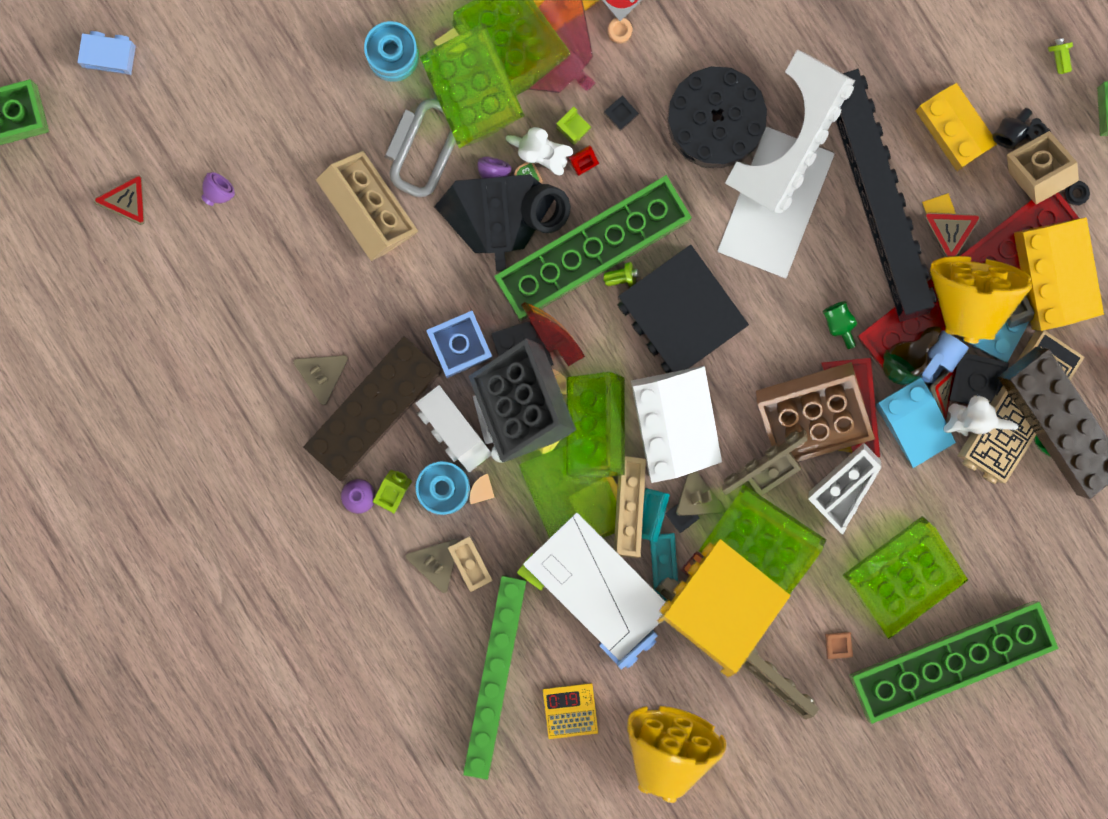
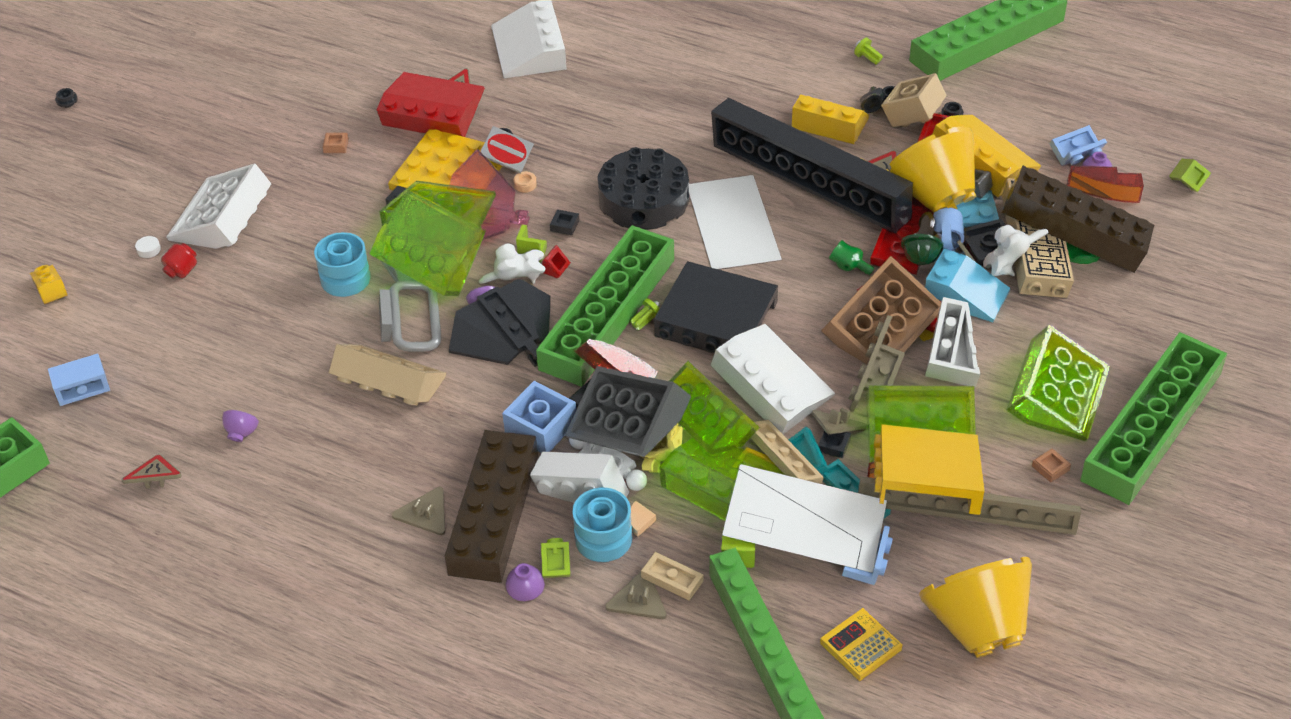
camera: 30 degrees left, 40 degrees down
(561, 212) = (540, 305): black tyre -> none
(823, 95) = (721, 193): white arch -> none

